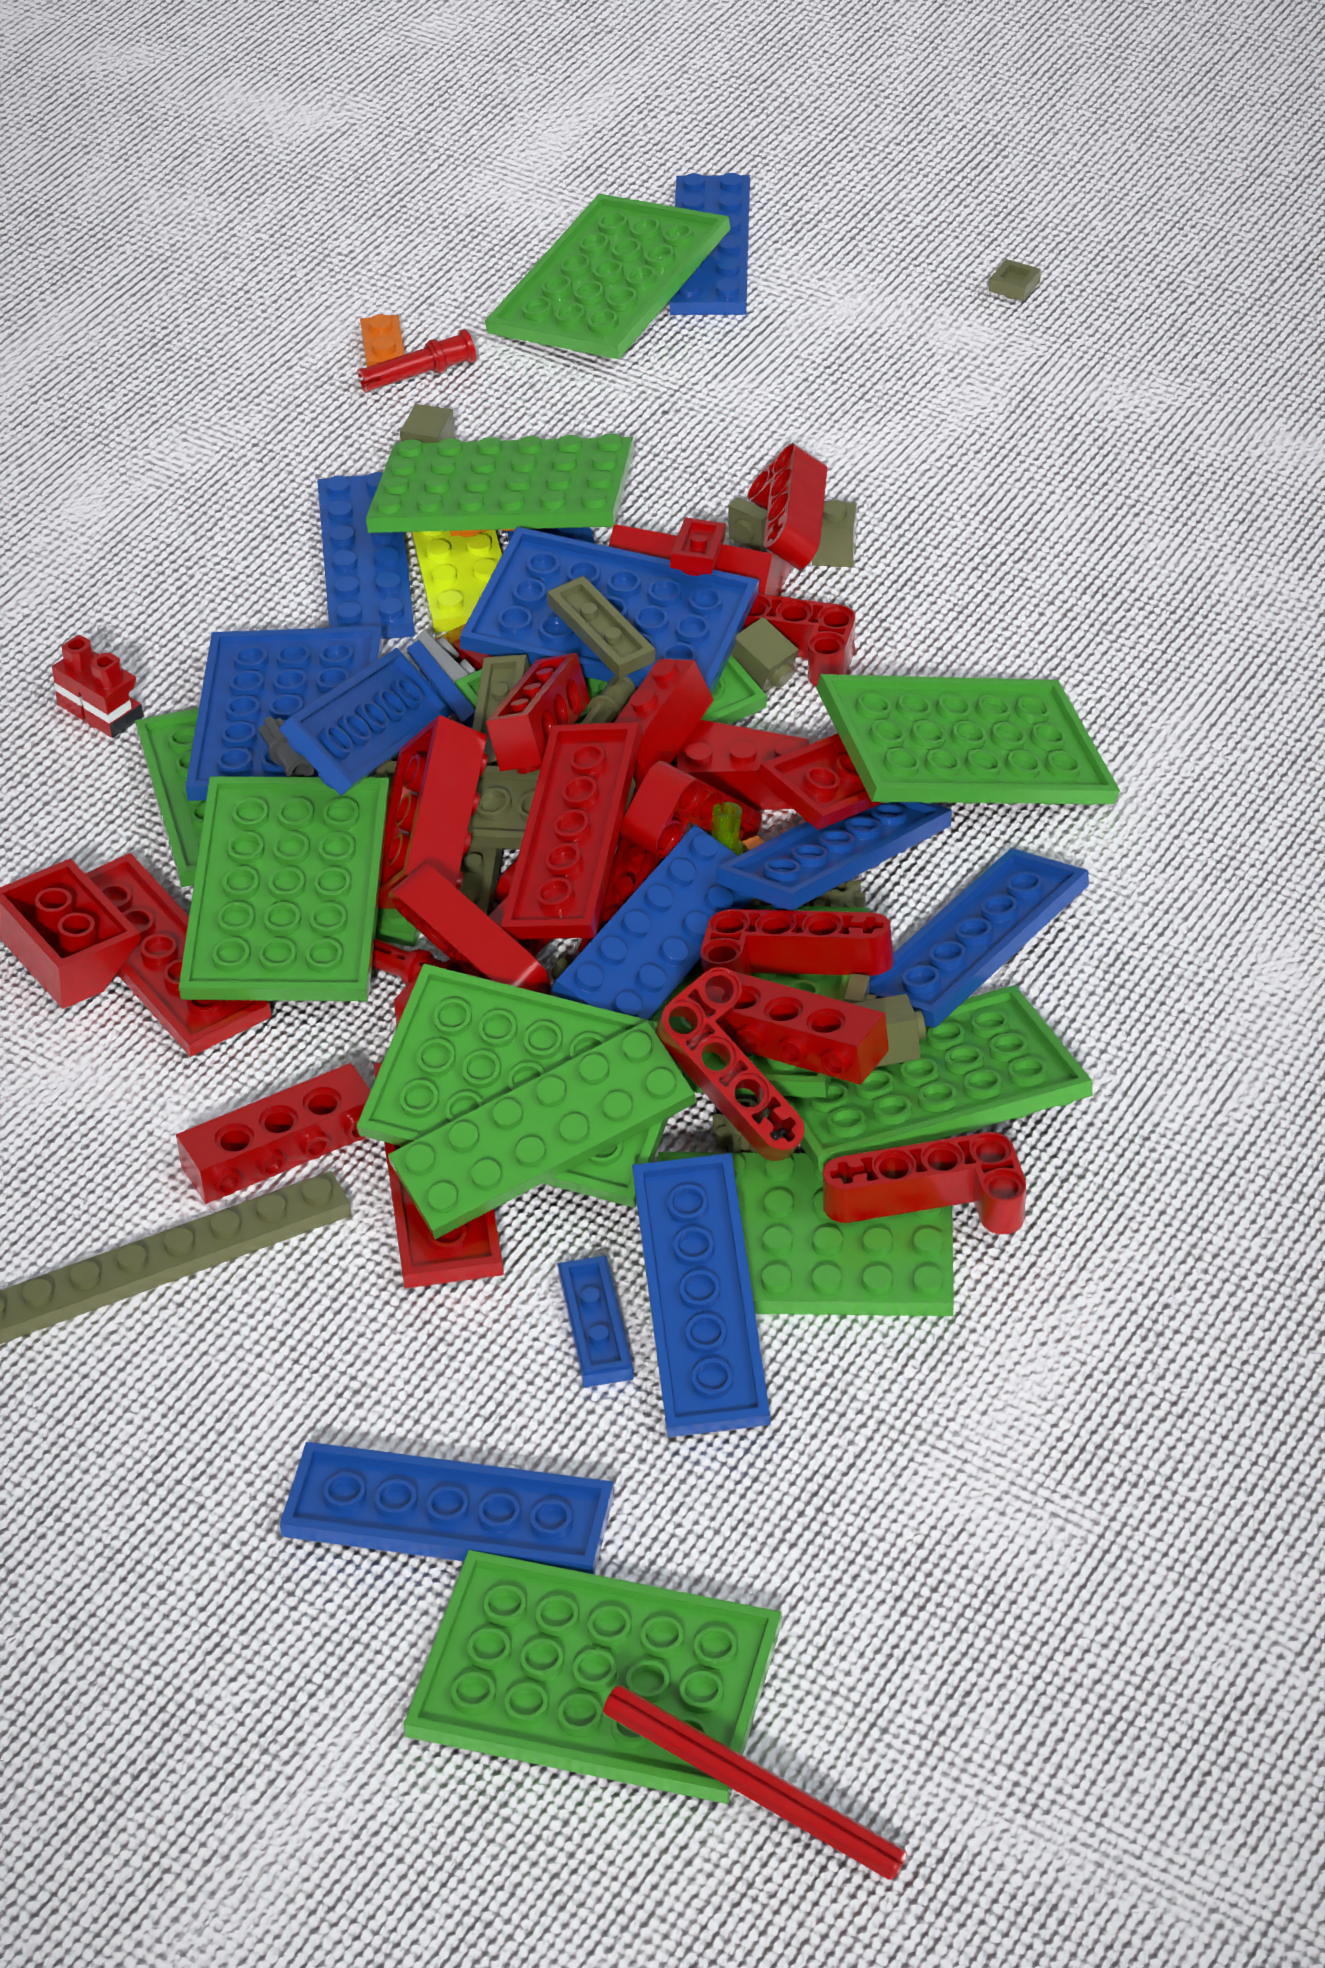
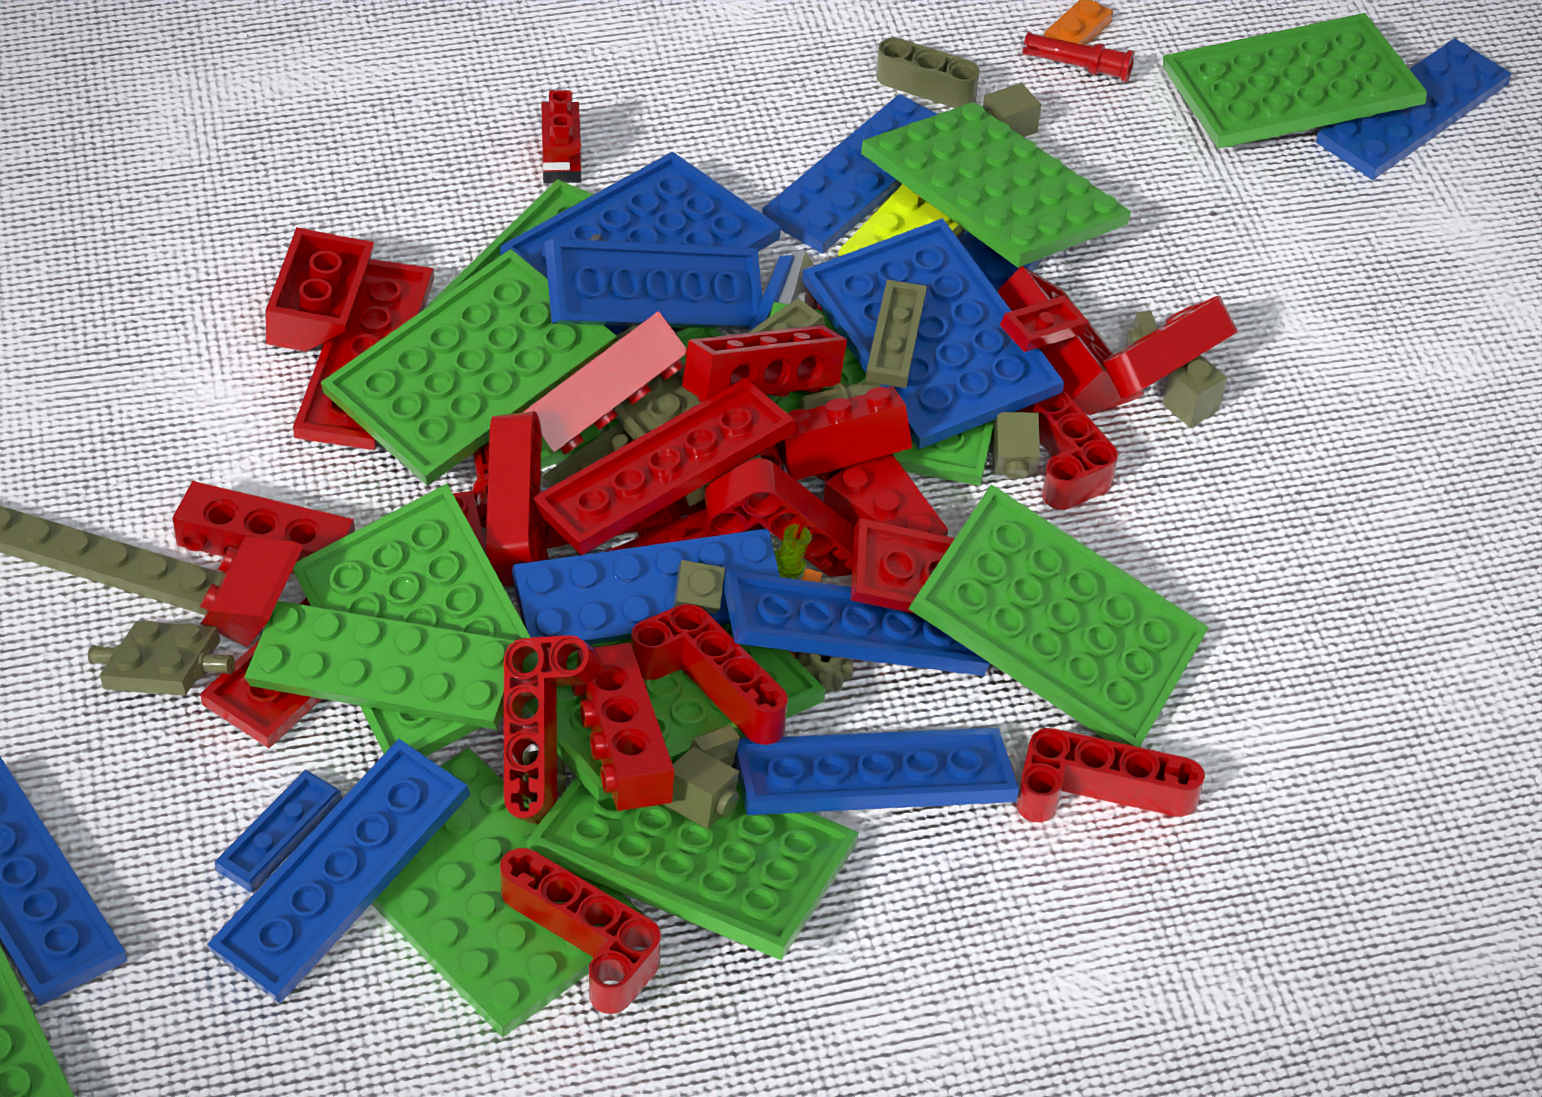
camera: 40 degrees right, 5 degrees up
(320, 449) = (927, 72): none -> olive beam
(332, 1278) = (161, 658): none -> olive plate
(354, 1161) = (249, 587): none -> red slope
(703, 897) = (699, 585): none -> olive plate
(1122, 818) = (1104, 772): none -> red beam

